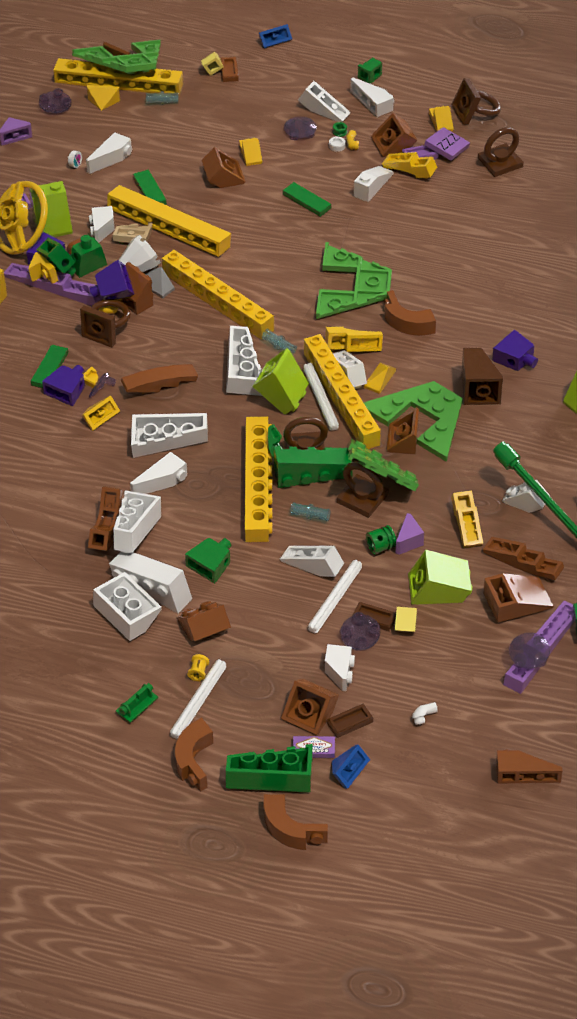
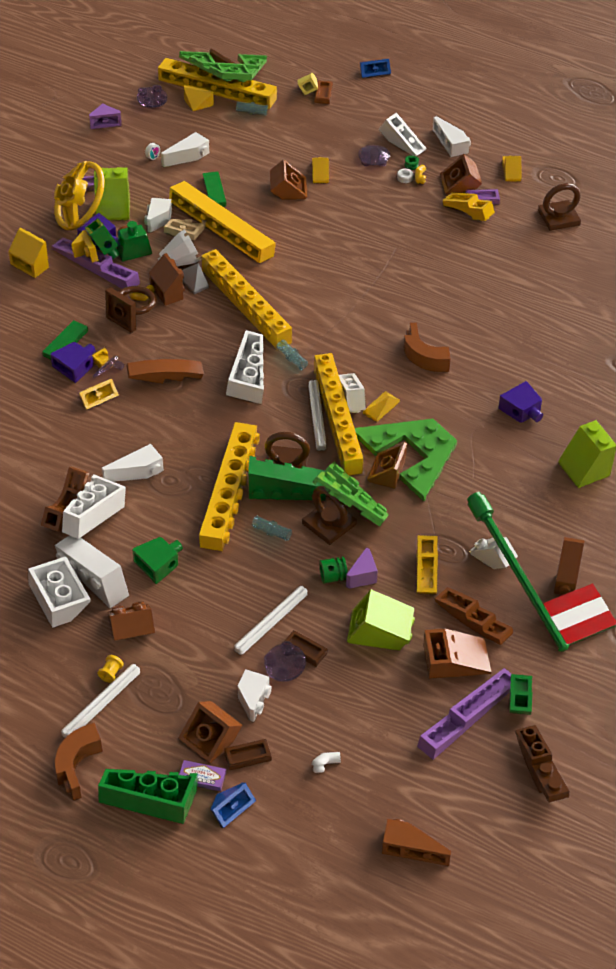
camera: 10 degrees right, 0 degrees up
(113, 282) = (146, 270): dark purple torso -> none
(137, 703) = (38, 694): green hinge -> none
(167, 431) = (154, 423): white wedge -> none
(273, 438) = (255, 447): green slope -> none
(282, 382) = (280, 394): lime slope -> none
(286, 829) = (145, 862): dark orange arch -> none
(307, 199) = (360, 222): green tile -> none
(314, 559) = (262, 578): white slope -> none
(353, 340) = (364, 364): yellow slope -> none
(370, 70) = (455, 113): green brick -> none
(370, 182) = (426, 215): white slope -> none
(370, 284) = (395, 317): bright green wing -> none
(406, 619) = (334, 658): light yellow brick -> none
(447, 143) = (510, 191): medium lavender tile -> none
(467, 102) = (540, 154): reddish brown tile -> none
(480, 378) = (478, 424): reddish brown slope -> none
(529, 650) = (451, 716): clear purple dish -> none

